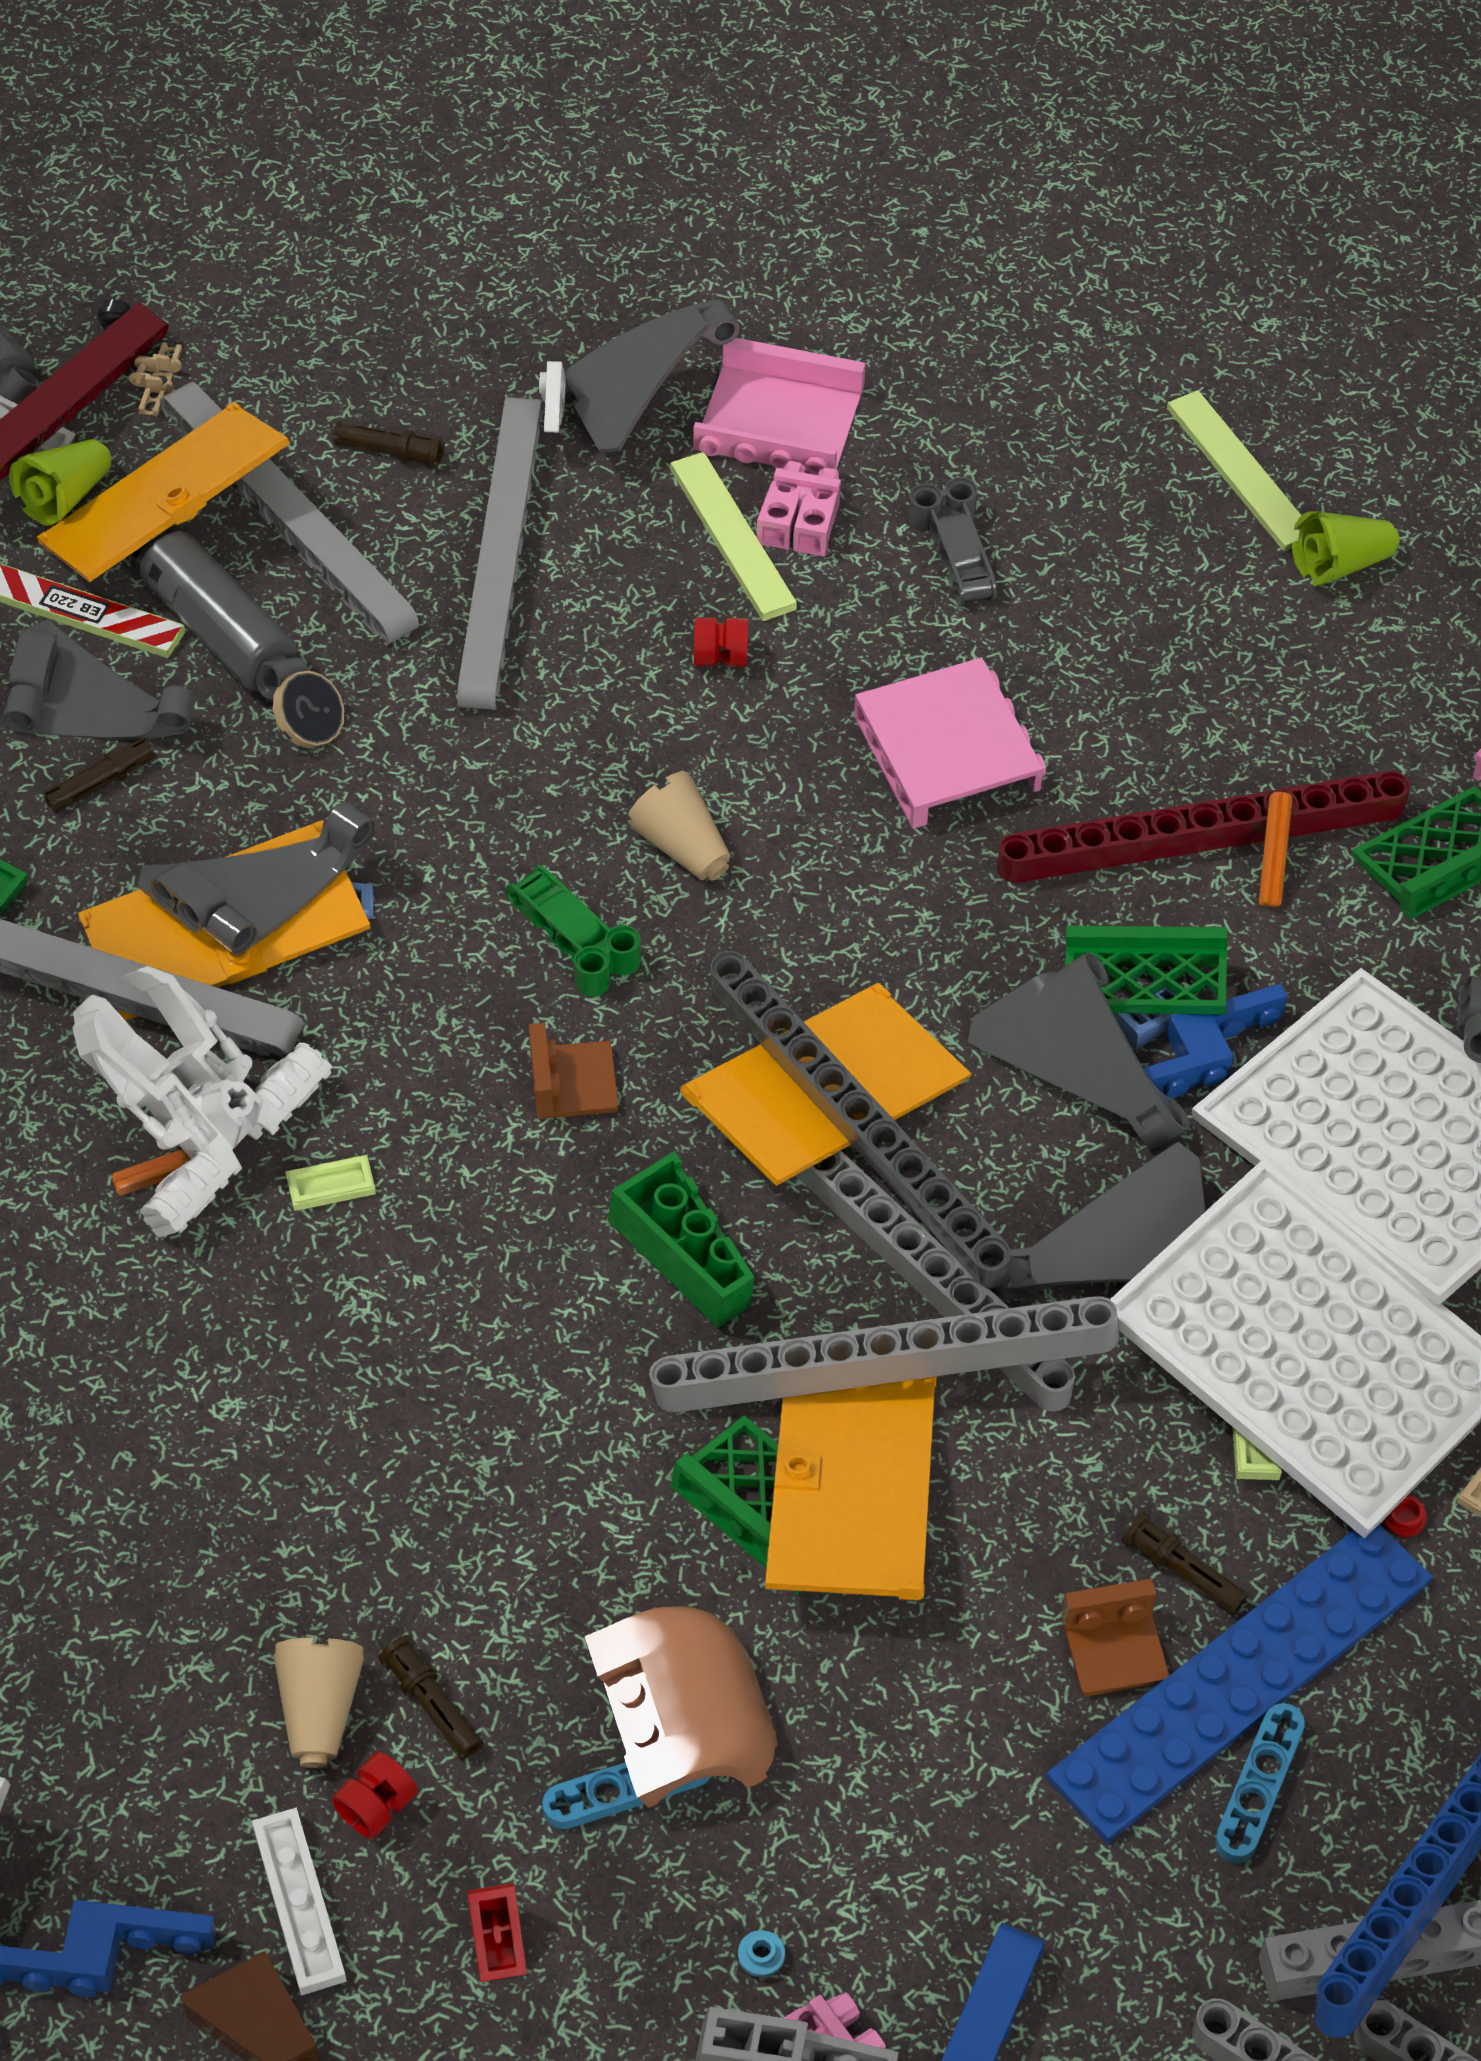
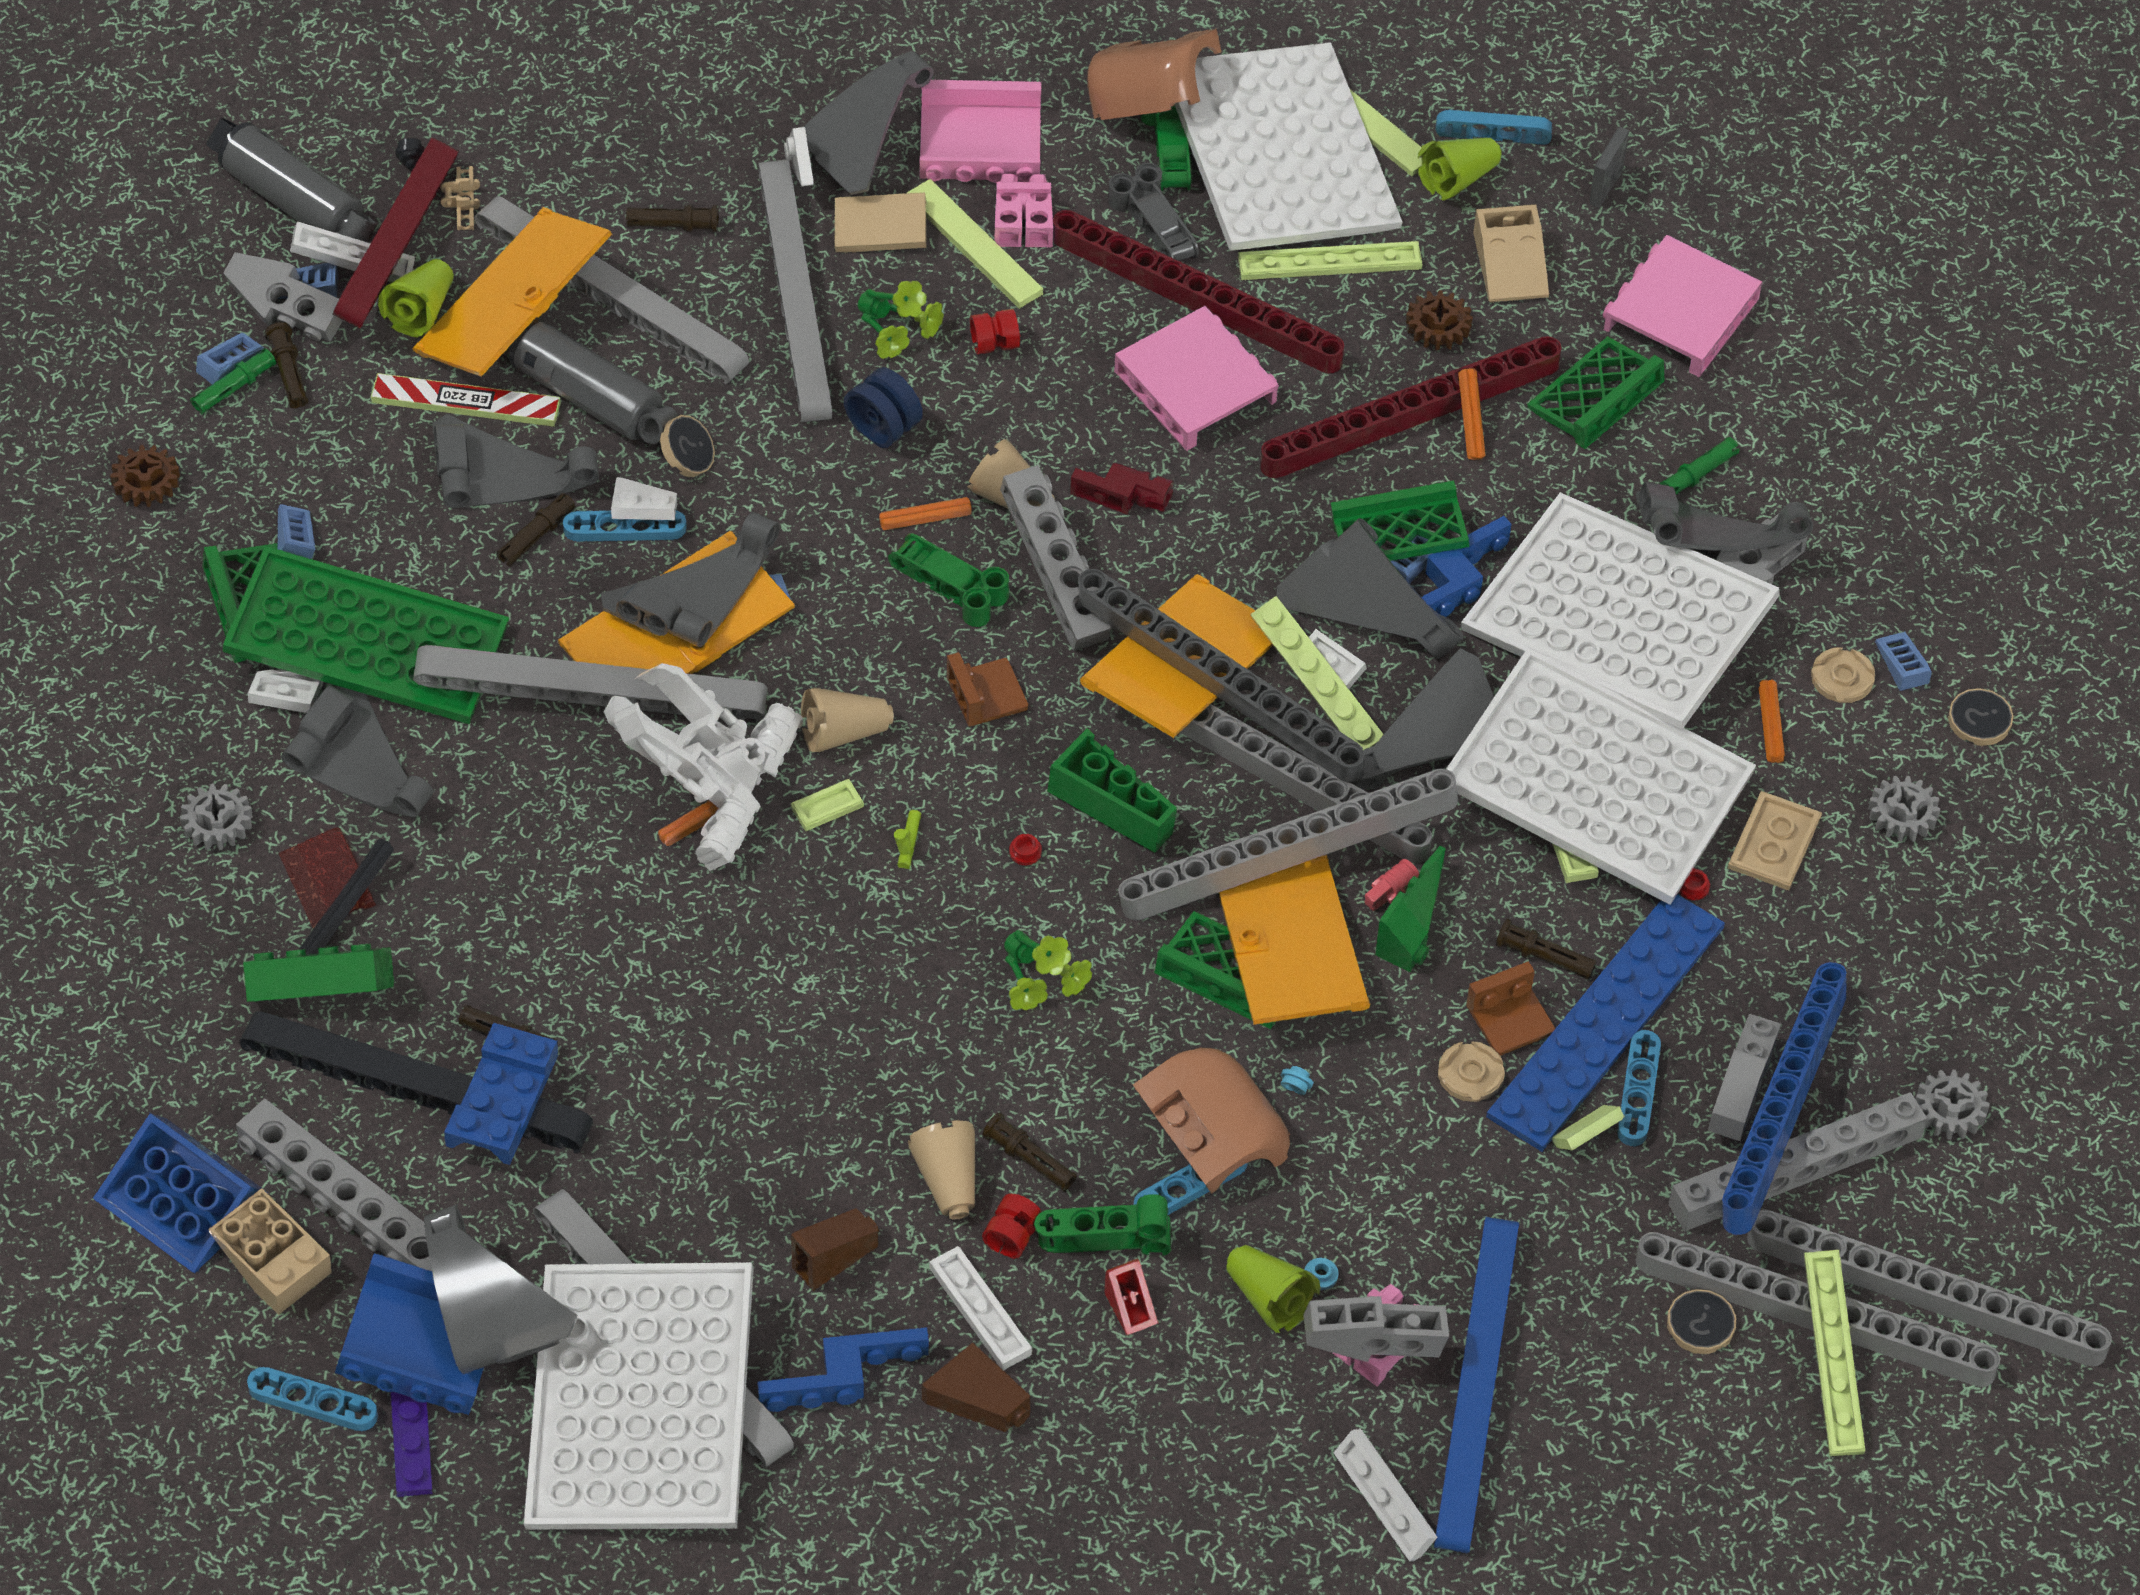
camera: 15 degrees left, 0 degrees up
(134, 1771) = (832, 1246): none -> reddish brown slope
(208, 786) = (624, 531): none -> dark azure beam
(232, 766) = (642, 501): none -> white wing
(382, 1077) = (842, 717): none -> tan cone
(411, 1249) = (906, 839): none -> lime hose
(524, 1444) = (1051, 958): none -> lime plant
(545, 1835) = (1145, 1227): none -> green piece
(554, 706) = (883, 407): none -> dark blue wheel
(556, 1290) = (1025, 849): none -> red plate
(570, 844) = (925, 513): none -> orange axle
(613, 586) = (906, 303): none -> lime plant
(628, 491) = (880, 222): none -> tan tile
(682, 835) = (1033, 485): none -> light grey brick
(688, 1960) = (1272, 1286): none -> lime cone
(807, 1673) = (1296, 1080): none -> medium azure plate
(817, 859) = (1122, 488): none -> dark red plate
(978, 635) = (1196, 289): none -> dark red beam
(989, 1140) = (1316, 673): none -> yellowish green plate
(990, 375) = (1146, 77): none -> nougat piece
(1007, 433) = (1171, 148): none -> green piece
(1009, 1433) = (1390, 884): none -> coral hinge
(1012, 1487) = (1408, 919): none -> green wedge
(1013, 1124) = (1343, 662): none -> white plate
(1044, 1724) = (1475, 1080): none -> tan tile
(1132, 488) = (1285, 149): none -> white plate
(1155, 632) = (1329, 260): none -> yellowish green tile
(1175, 1825) = (1588, 1127): none -> yellowish green tile
(1284, 735) = (1423, 320): none -> reddish brown gear
(1379, 663) = (1511, 253): none -> tan slope
(1399, 507) = (1494, 124): none -> dark azure beam
(1402, 1803) = (1744, 1077): none -> light grey brick

